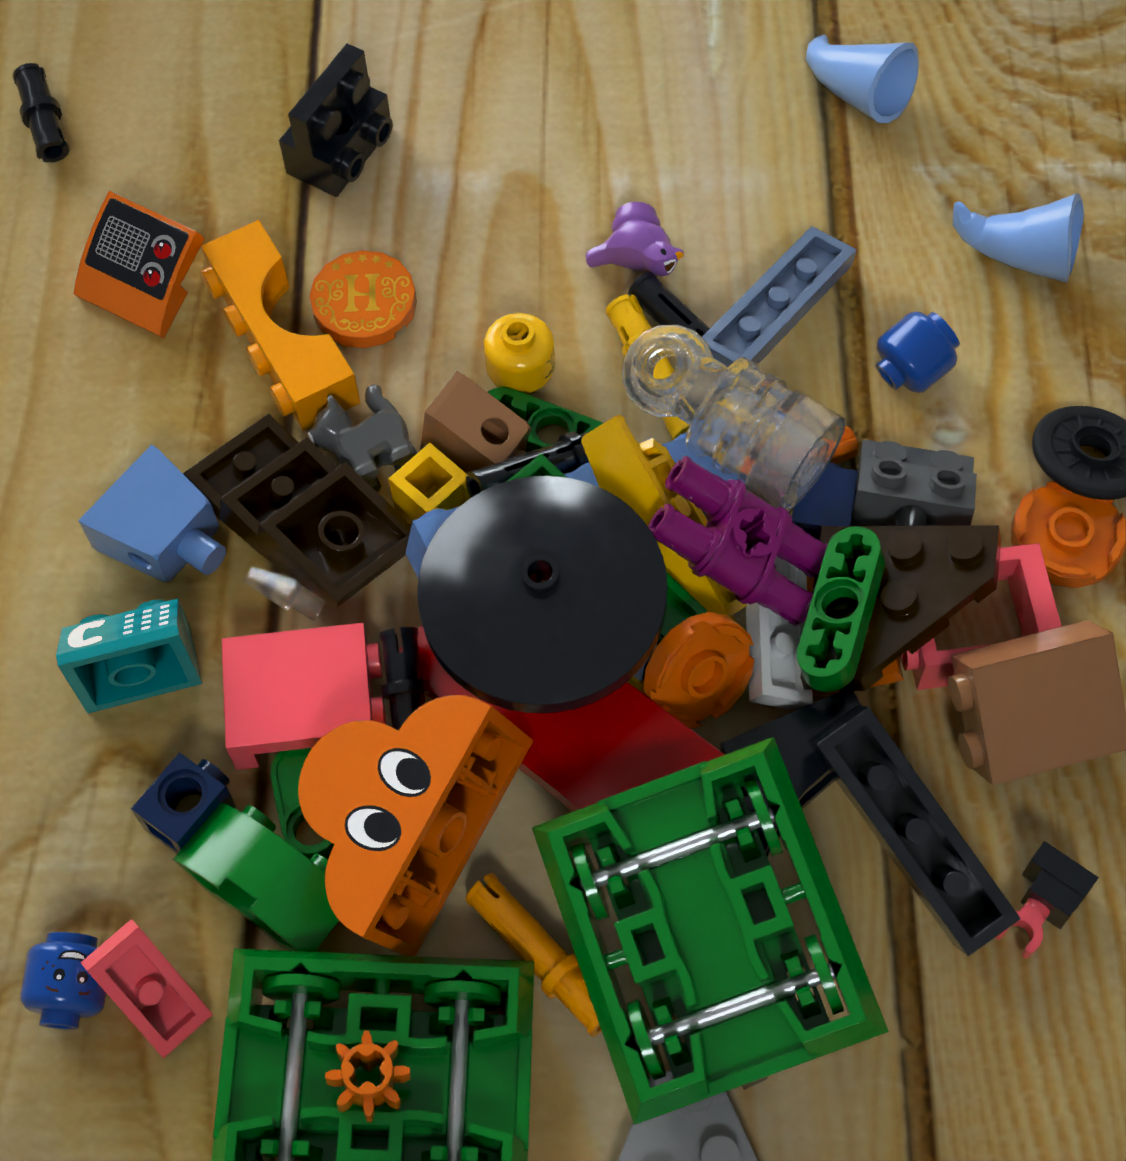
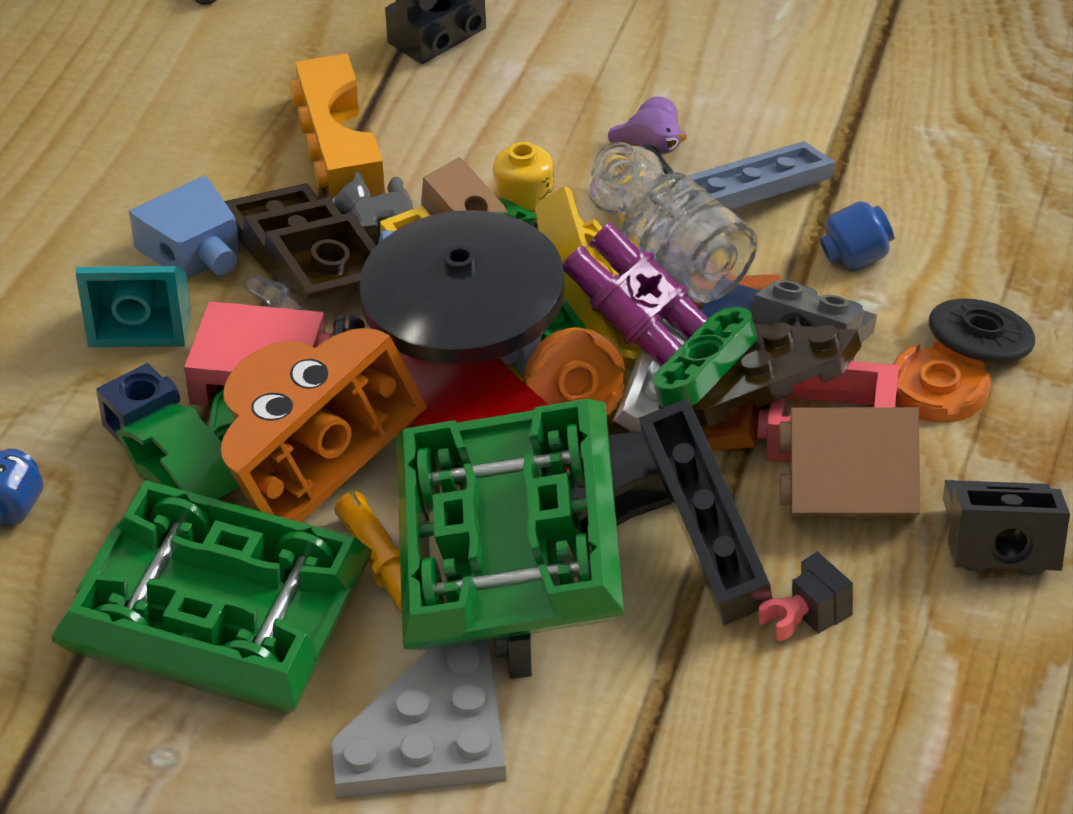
camera: 15 degrees right, 20 degrees down
(136, 264) = (240, 68): slope -> none
(146, 988) = (63, 503): coral slope -> none
(363, 298) = (415, 128): orange tile -> none
(368, 1057) = (208, 564): orange gear -> none
(867, 76) = (900, 53): light blue hat -> none
(1033, 240) = (995, 182): light blue hat -> none

